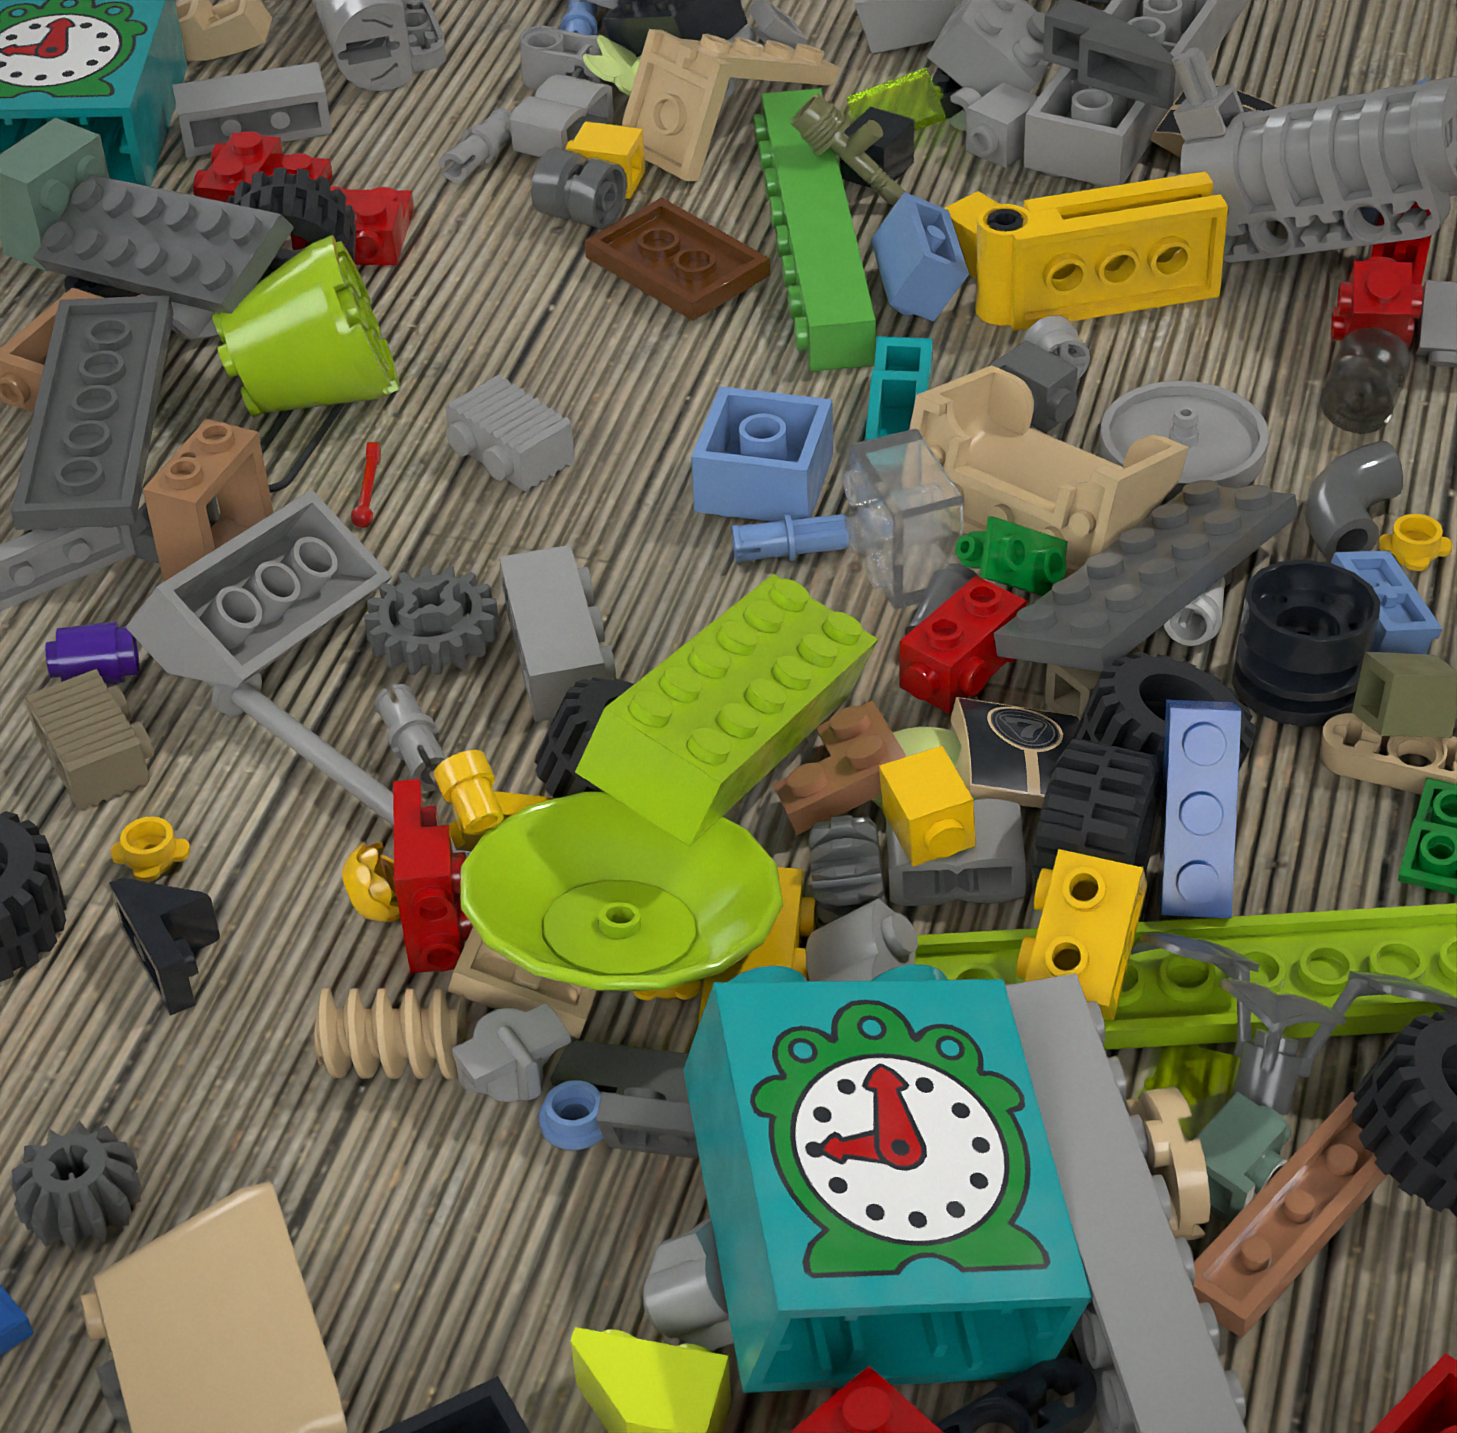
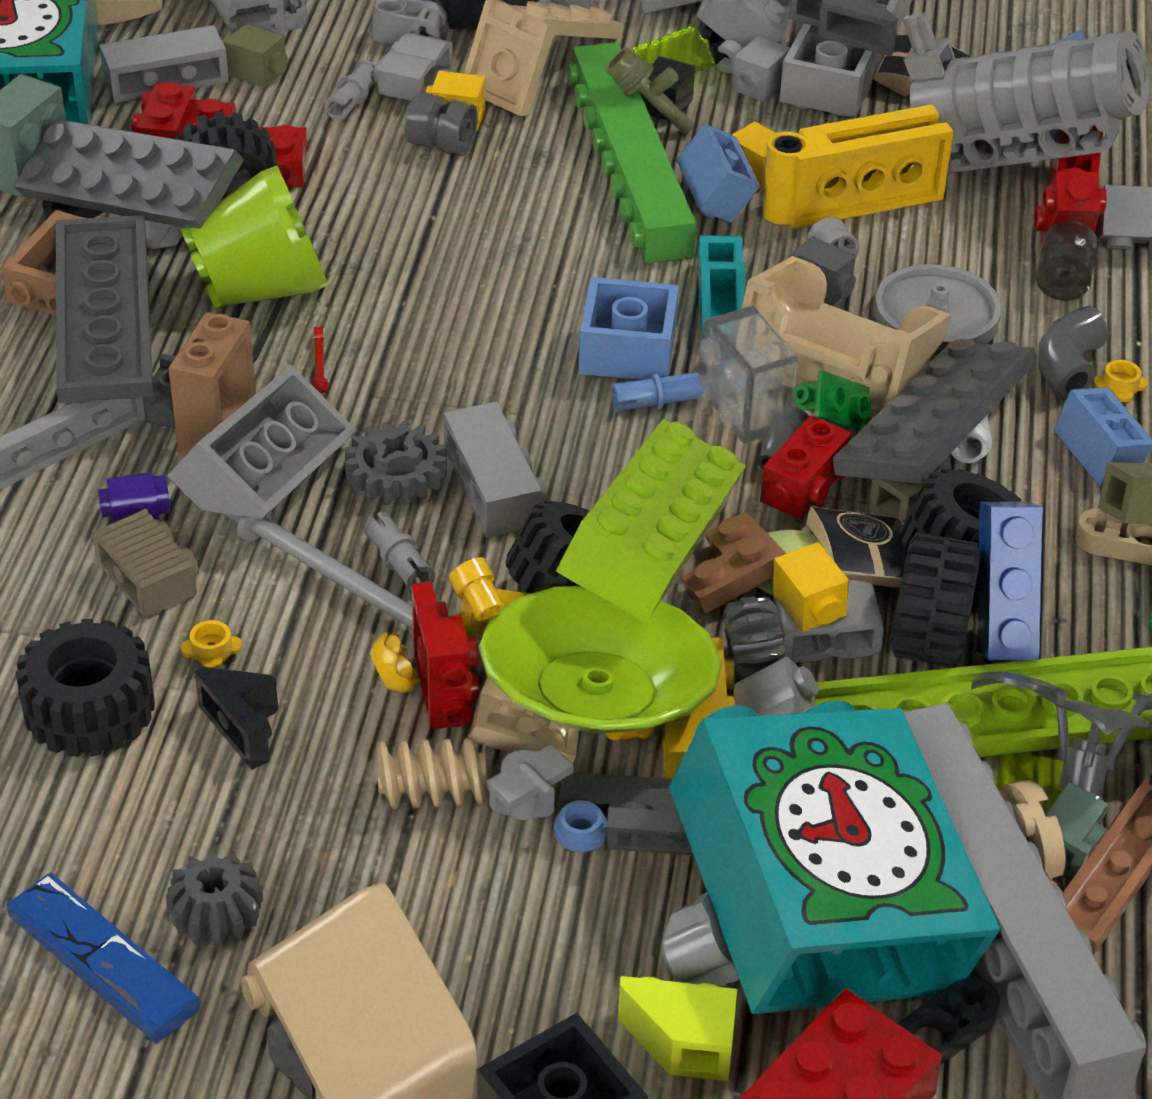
camera: 10 degrees left, 0 degrees up
(366, 100) = (255, 55): none -> olive brick
(510, 433) = (426, 316): light grey brick -> none
(614, 65) = (454, 26): yellowish green plate -> none
(677, 258) = (527, 177): reddish brown plate -> none
(1085, 925) = (945, 665): yellow brick -> none
(1304, 641) = (1060, 455): black wheel -> none

